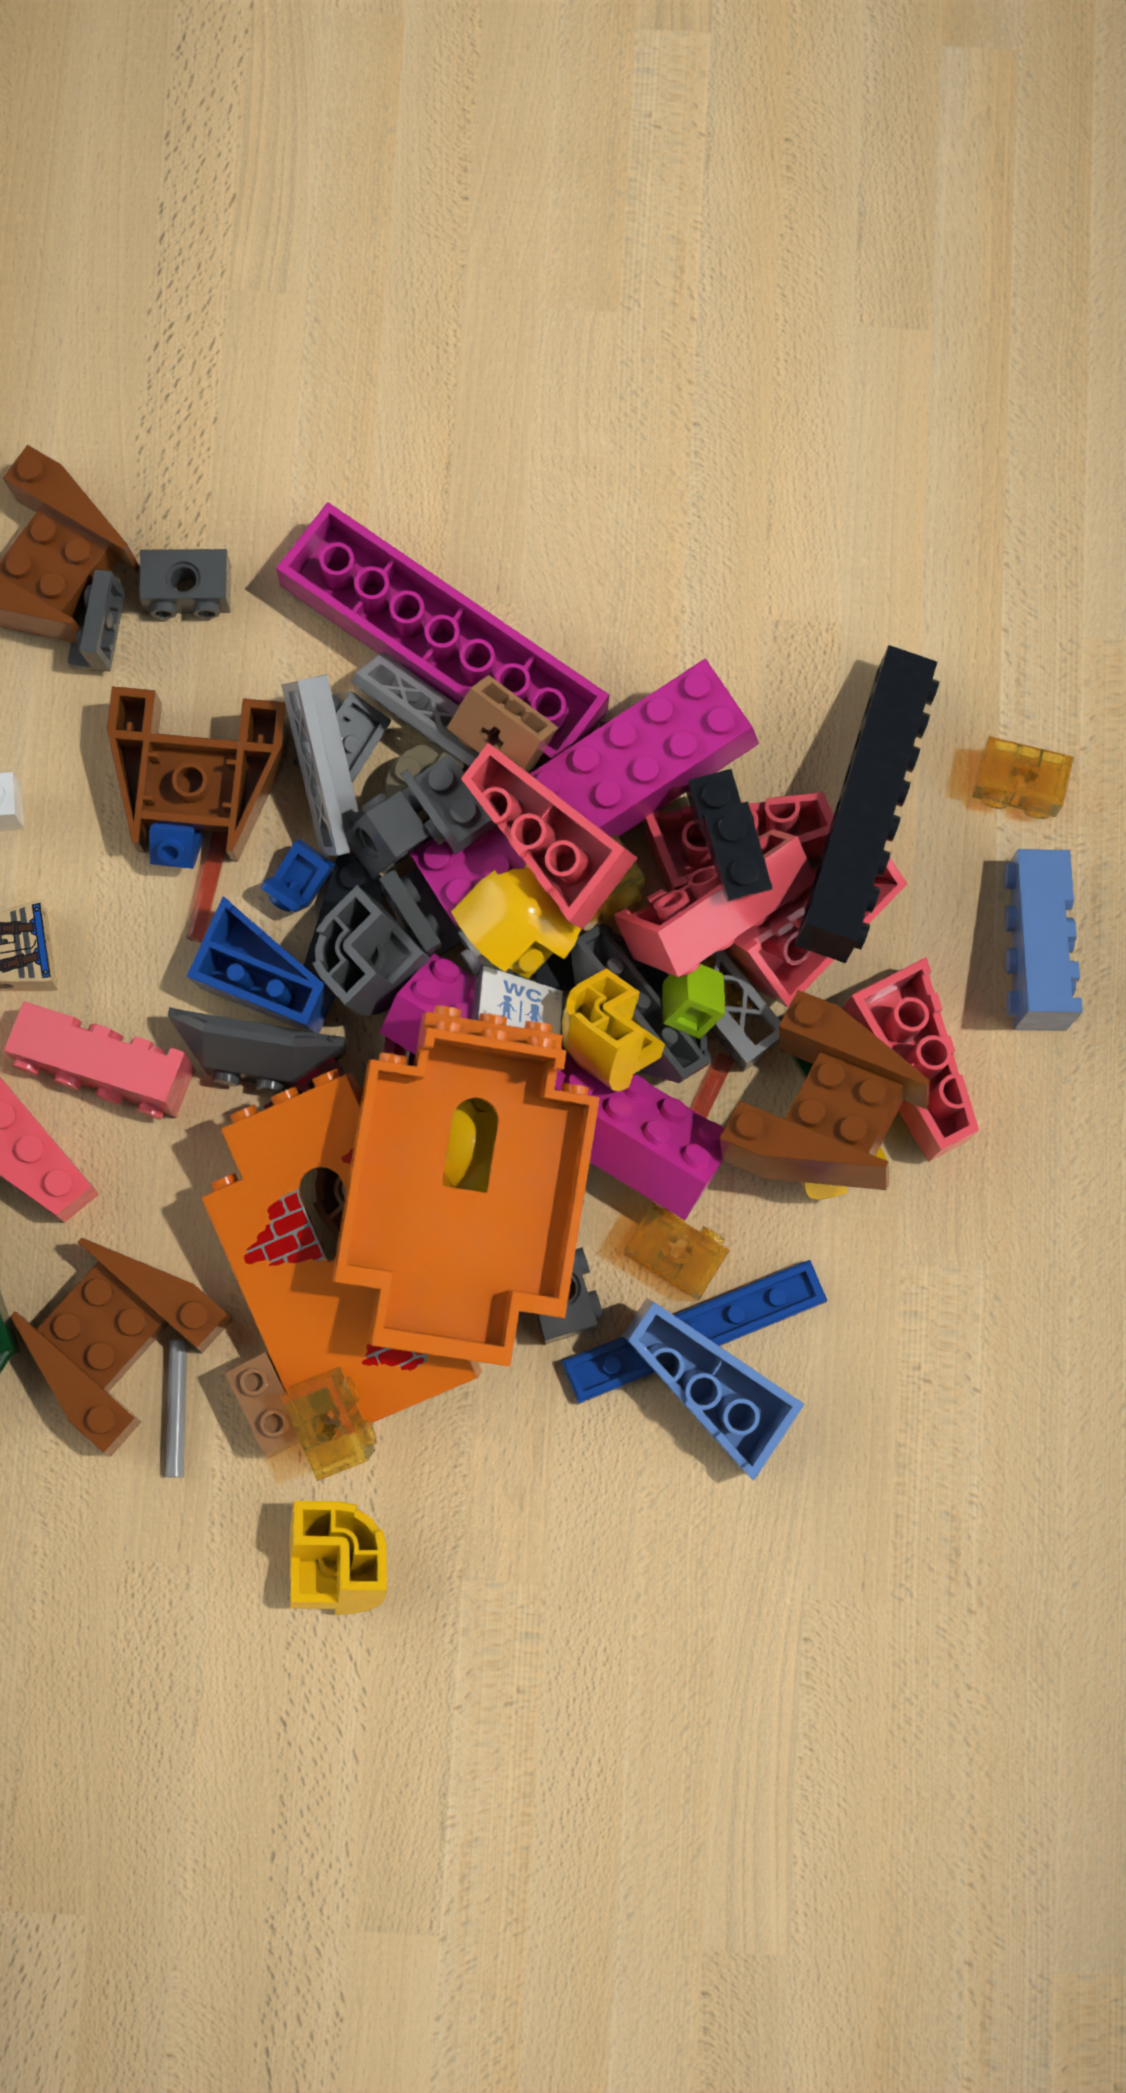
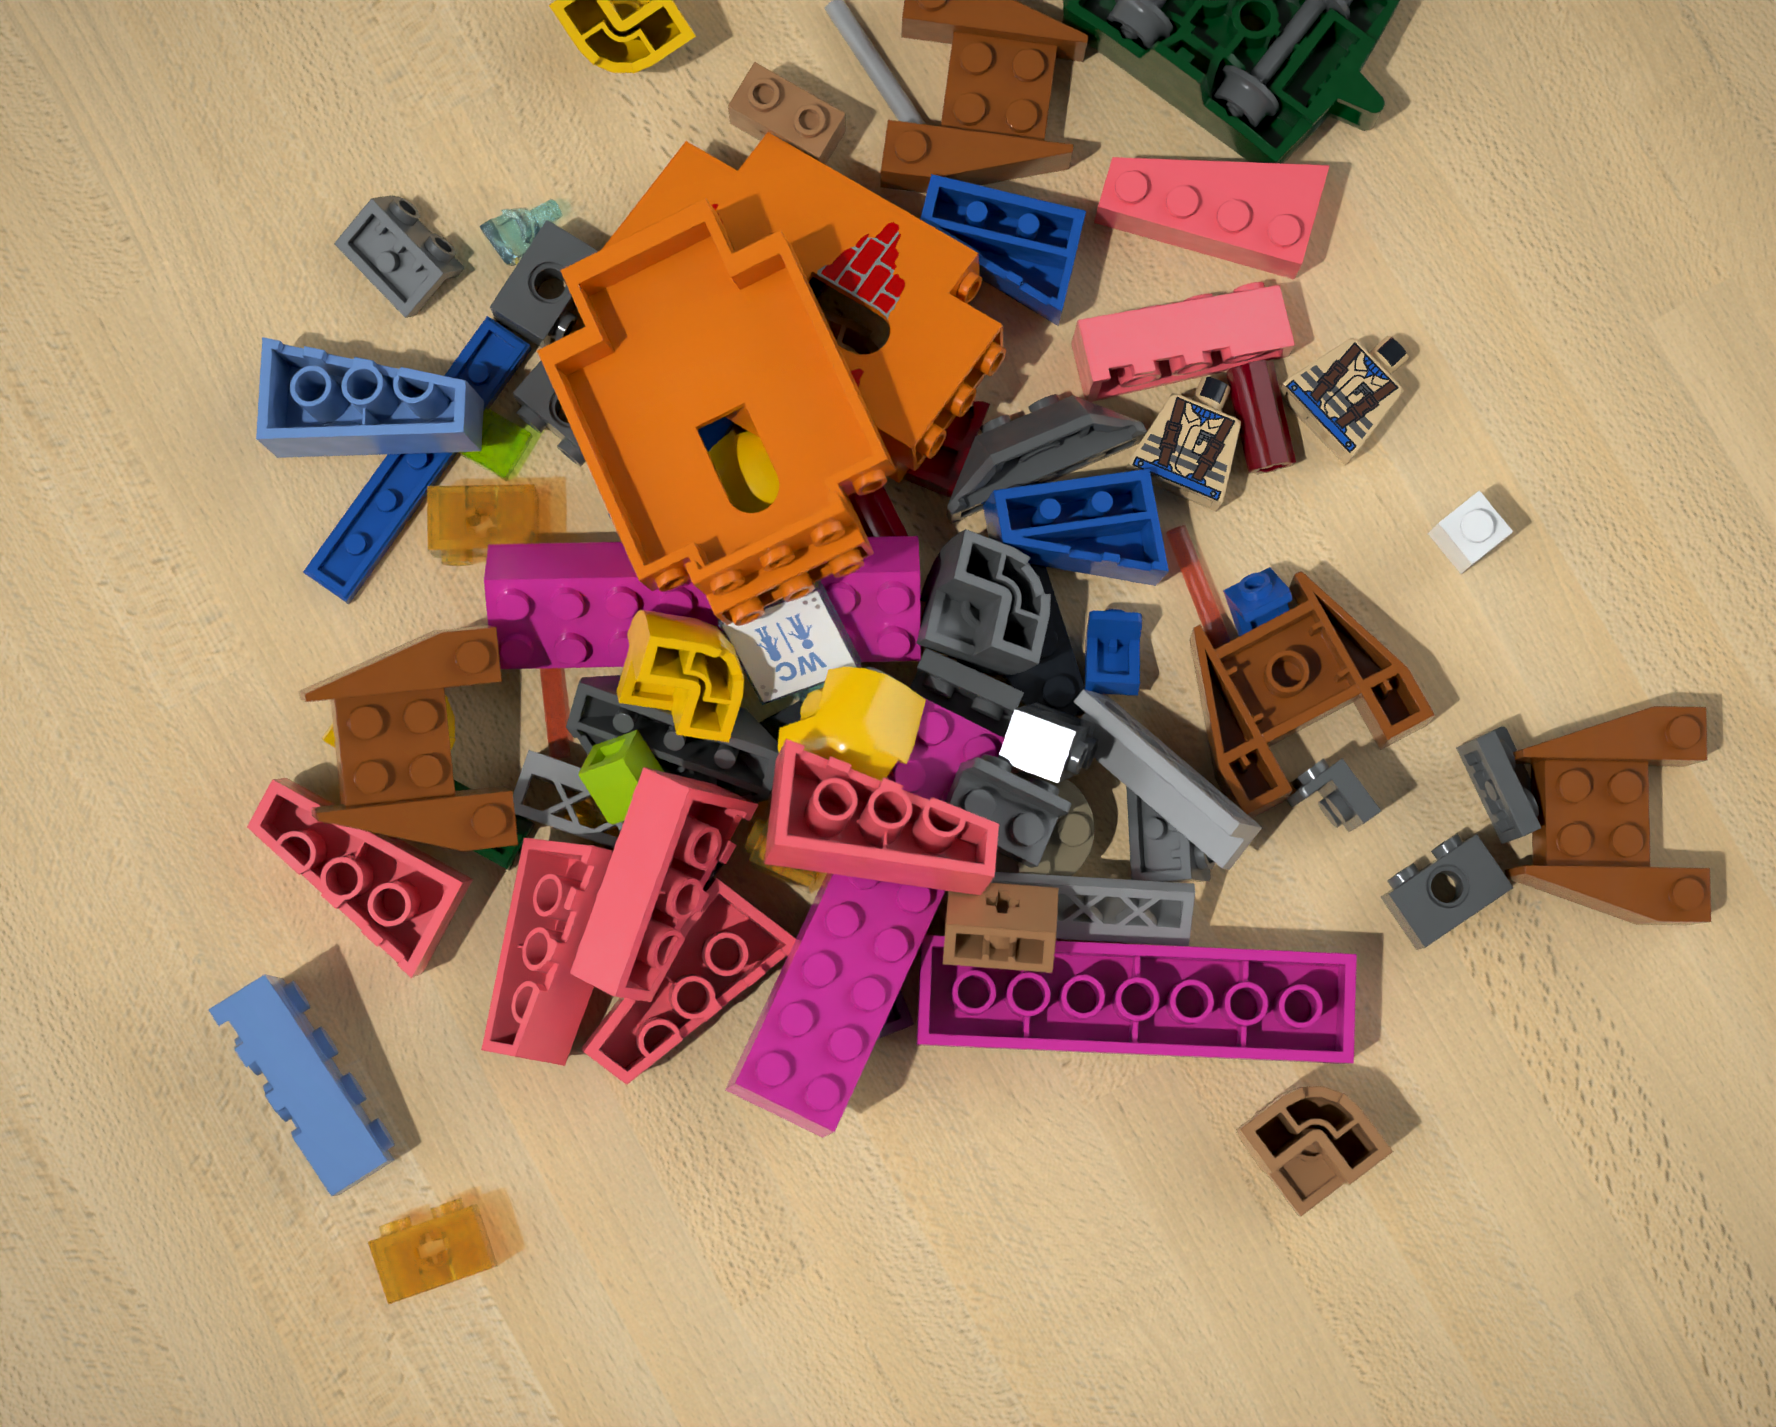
camera: 145 degrees right, 5 degrees up
(82, 973) = (1262, 417): none -> dark red axle
(144, 985) = (1191, 445): none -> torso
(167, 1203) = (1020, 240): none -> blue wedge
(217, 694) = (1343, 795): none -> dark grey bracket
(326, 1446) = (709, 125): clear yellow brick -> none
(388, 476) = (1312, 1144): none -> medium nougat brick
(514, 1452) = (517, 228): none -> clear light blue piece
(548, 1395) = (518, 301): none -> dark grey brick
(613, 1490) = (398, 253): none -> dark grey bracket
(626, 1301) = (501, 445): none -> clear neon green tile
(728, 834) = (685, 948): black arch -> none
(867, 804) = (569, 1097): black brick -> none

